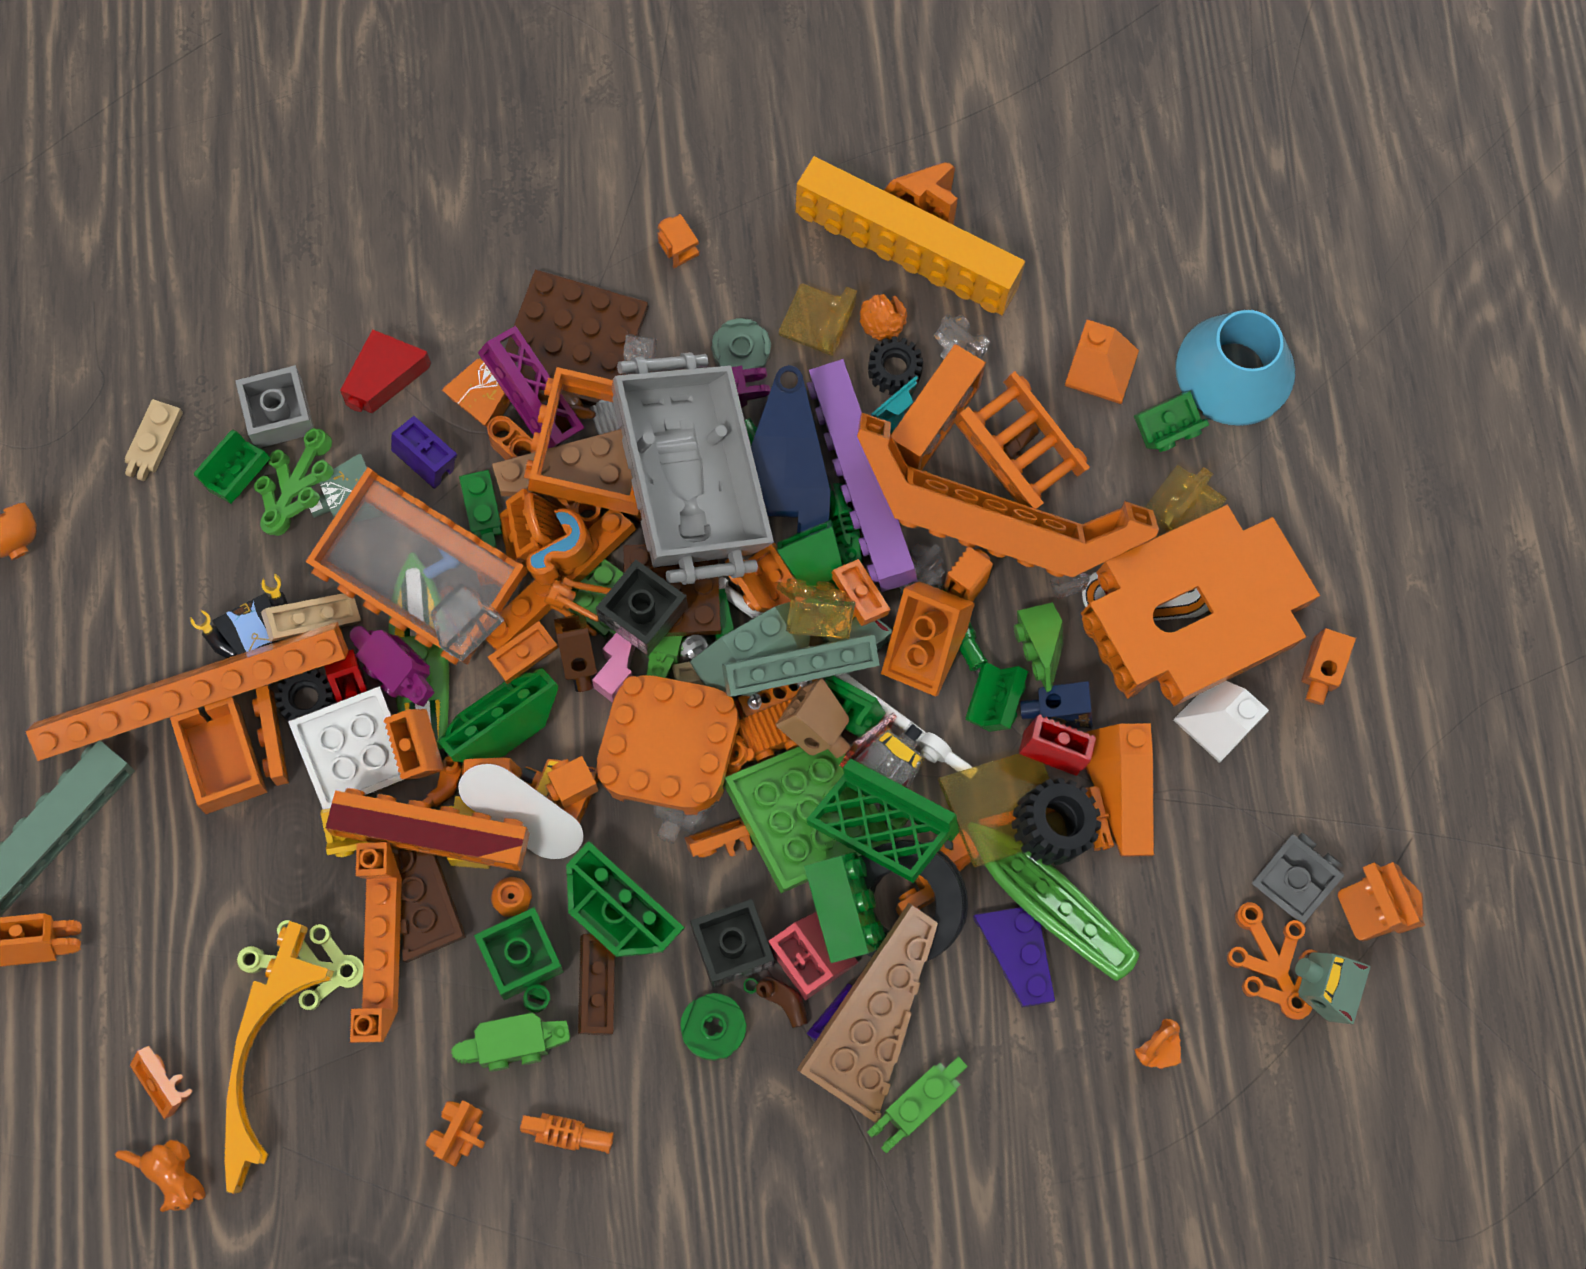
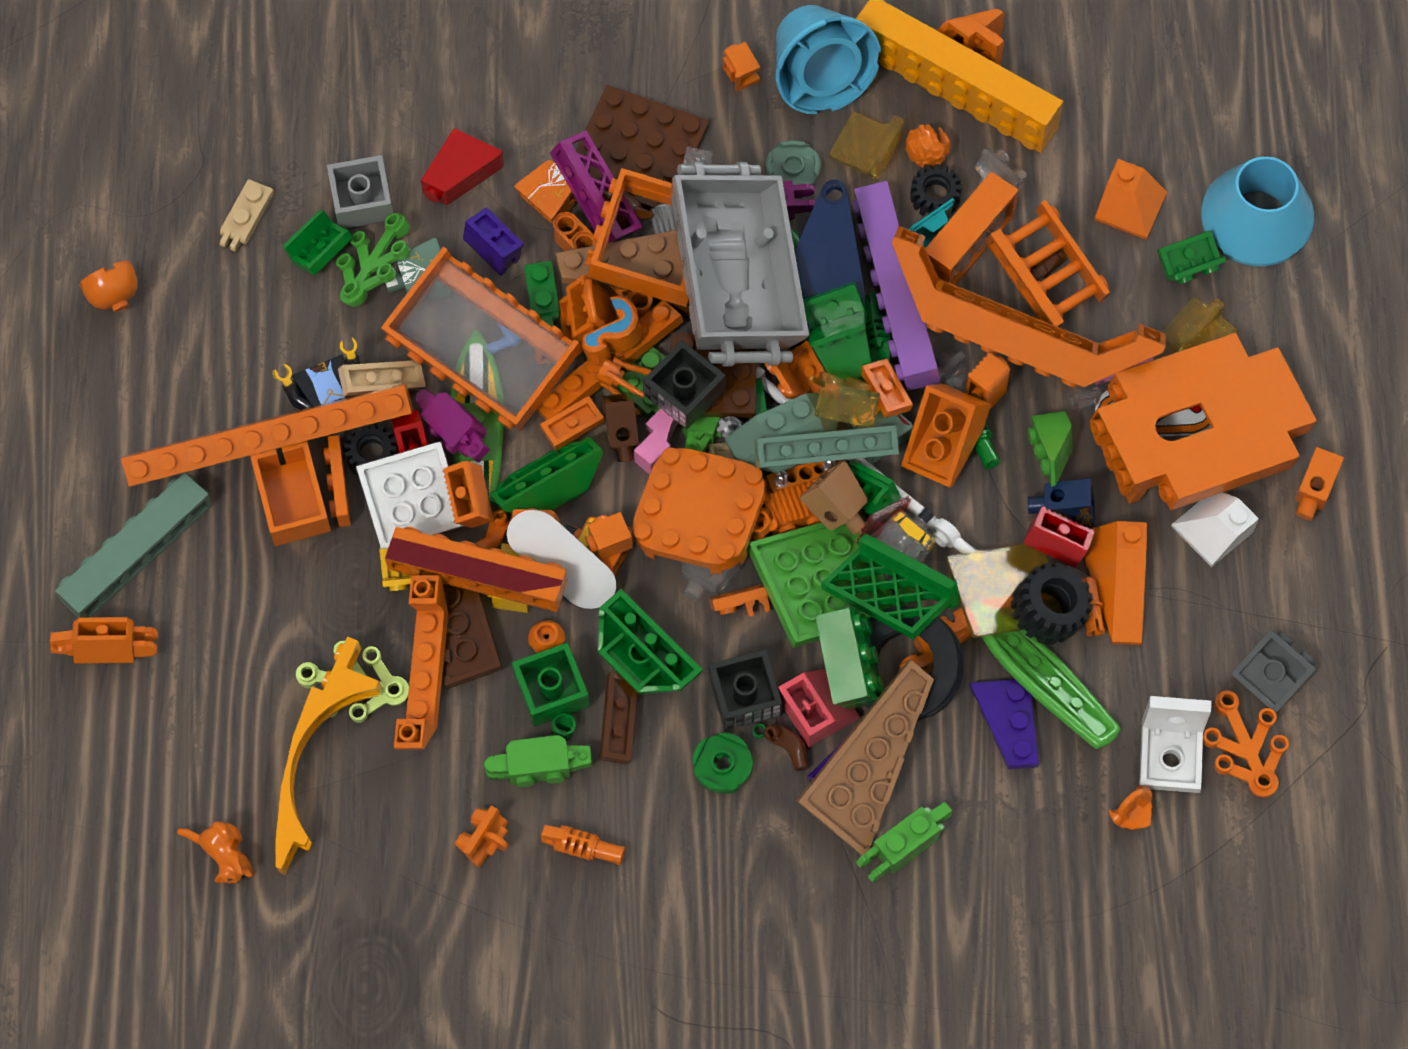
camera: 10 degrees right, 5 degrees down
(151, 1074) = (217, 773): orange plate -> none
(463, 620) = (520, 387): clear torso -> none
(765, 228) = (823, 59): none -> medium azure cone
(800, 517) = (835, 315): none -> green bracket
(996, 697) = (1005, 492): green bracket -> none
(1200, 955) = (1176, 729): none -> white bracket
(1332, 985) = (1296, 765): sand green torso -> none
(1382, 903) = (1351, 698): orange piece -> none

